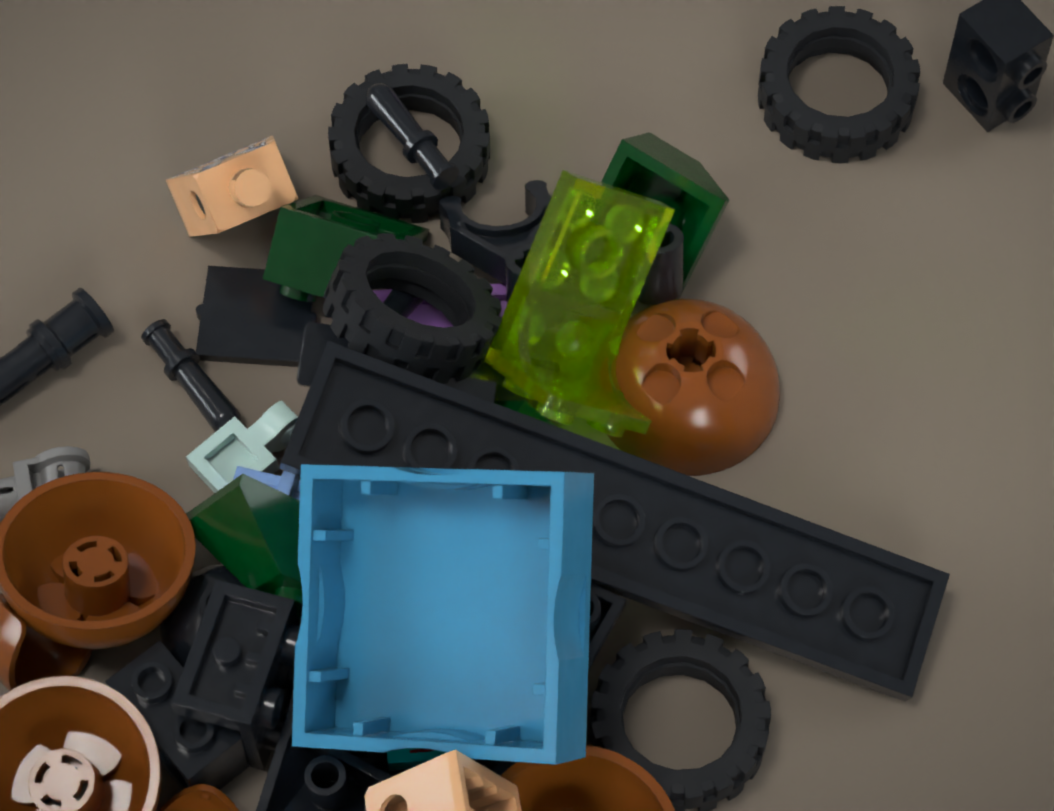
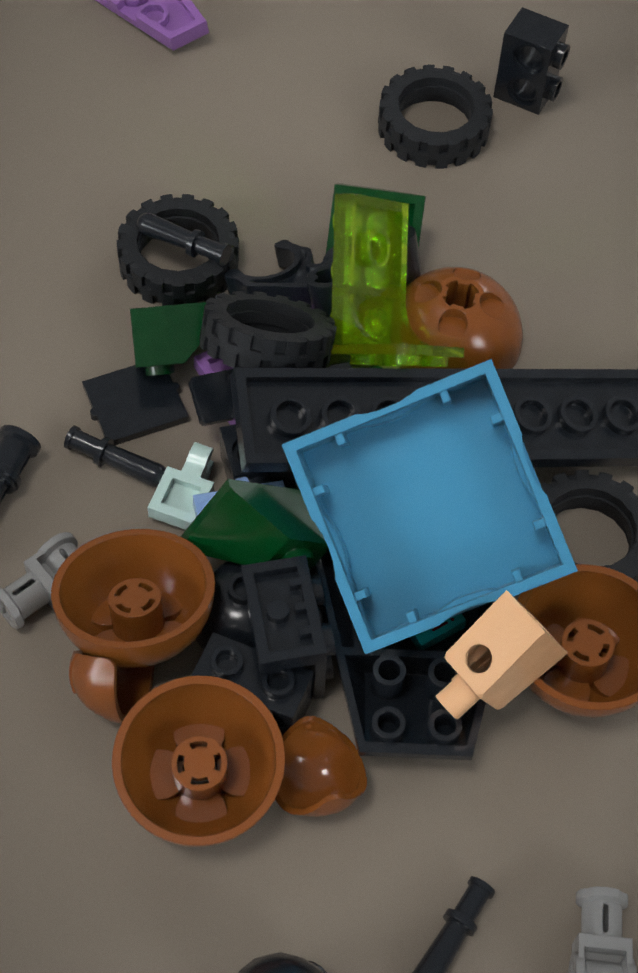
camera: 30 degrees left, 5 degrees down
(233, 188) = (85, 311): light nougat torso -> none

